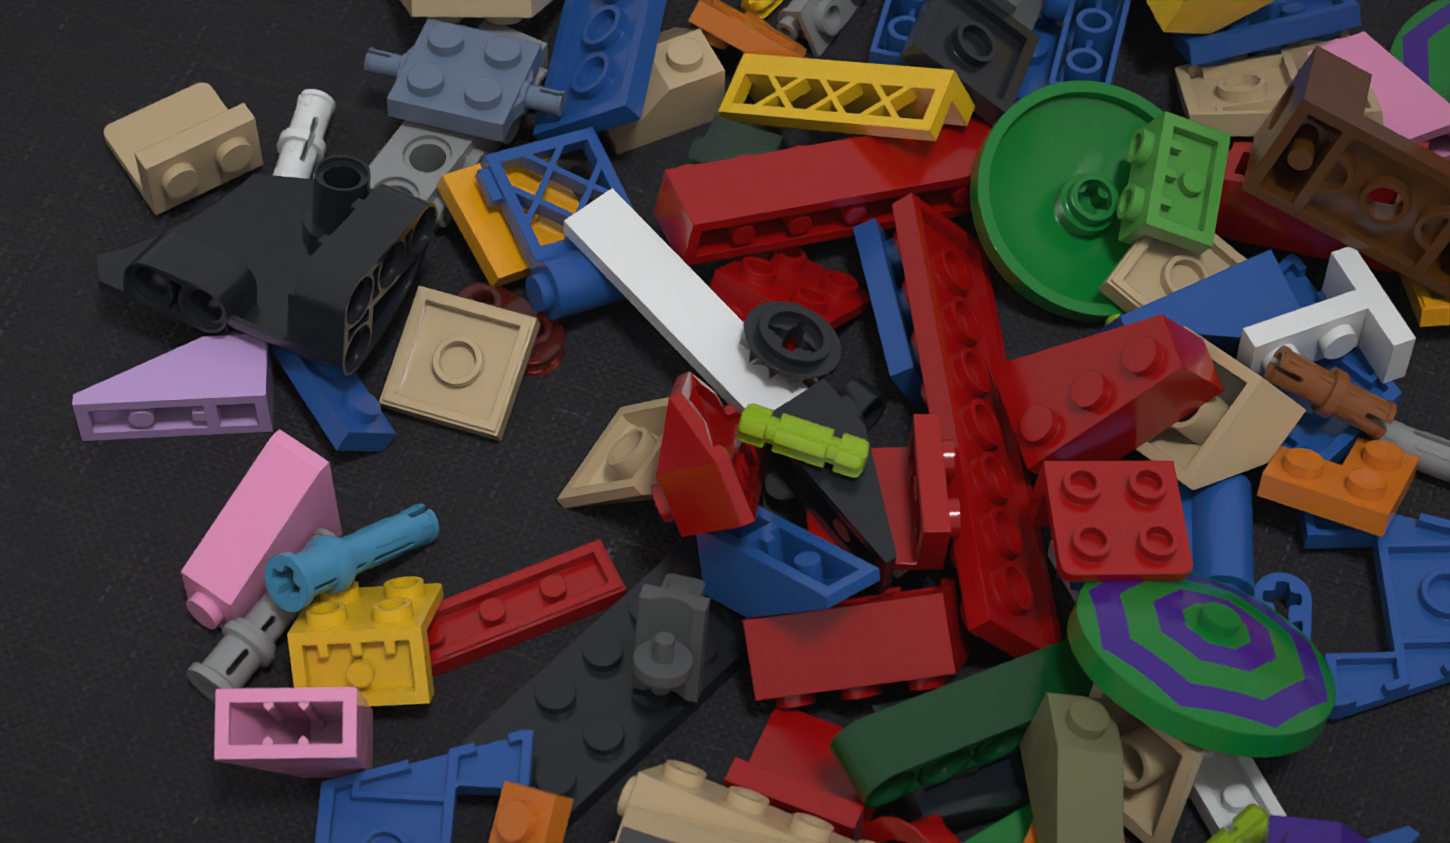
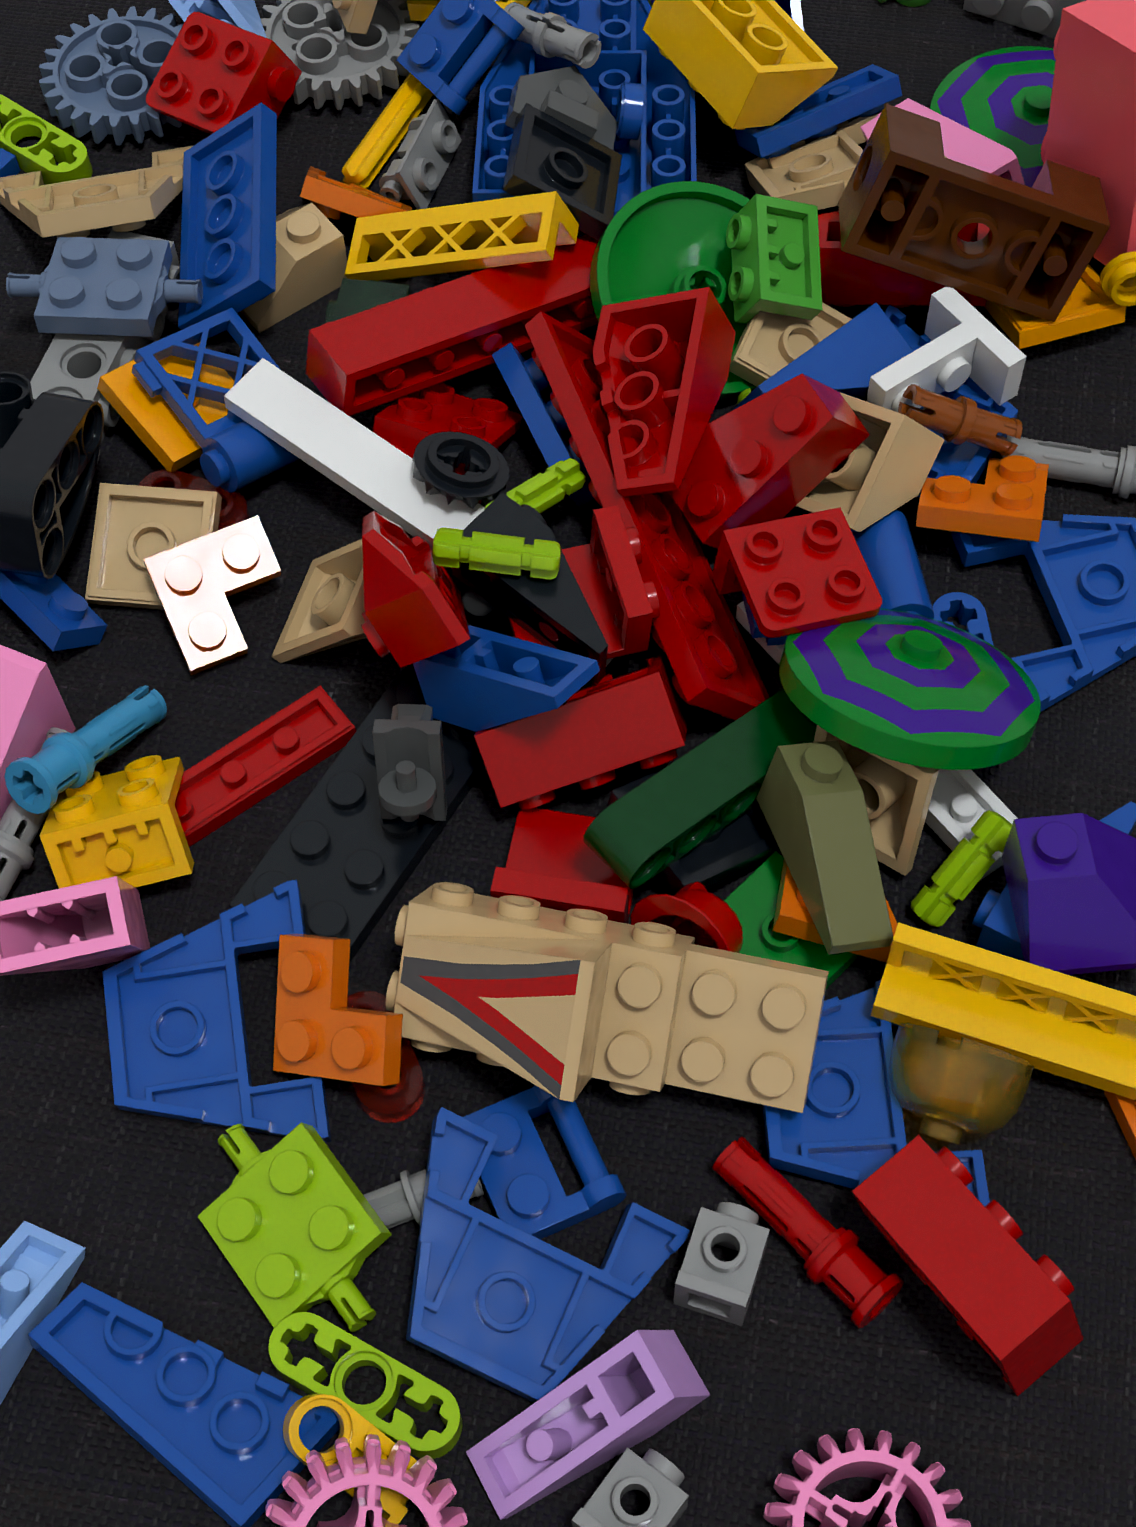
camera: 10 degrees left, 5 degrees up
(496, 405) = (198, 578): none -> plate
(877, 381) = (550, 487): none -> lime axle
(1020, 291) = (660, 383): none -> red wedge

